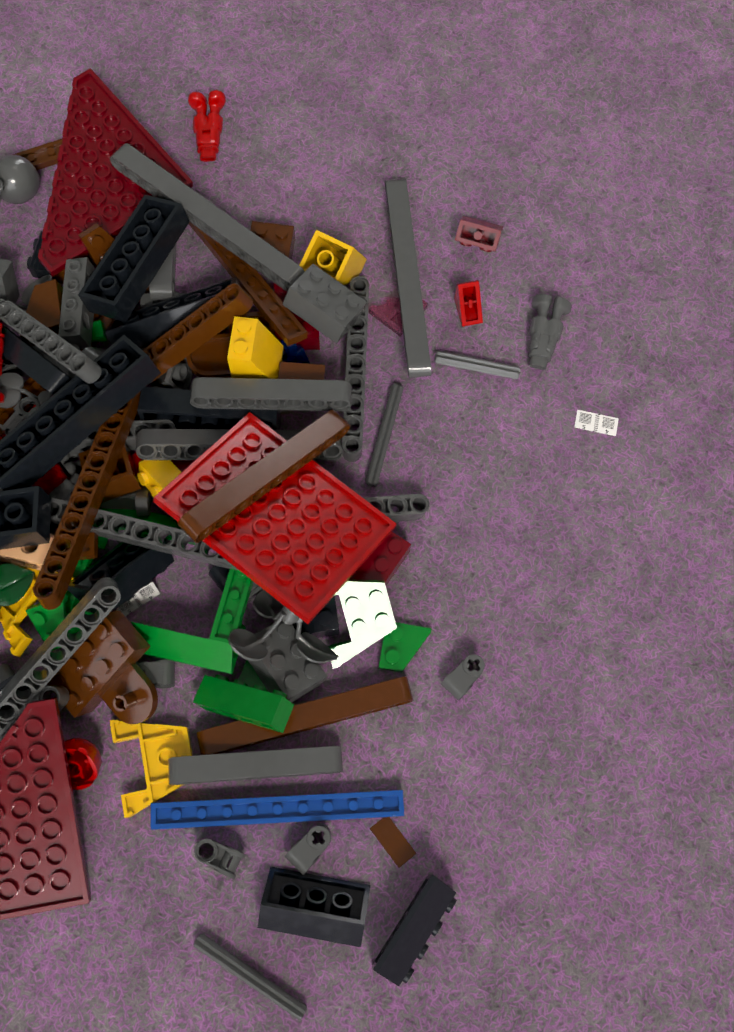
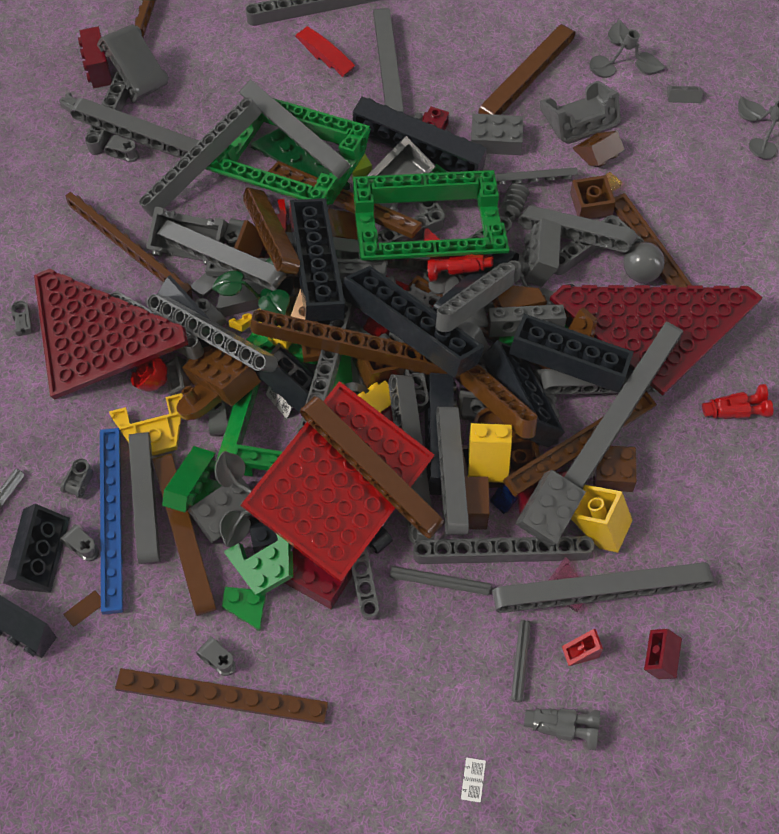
camera: 90 degrees right, 10 degrees down
(88, 726) = (176, 376): none -> dark grey slope
(506, 678) = (222, 696): none -> reddish brown plate

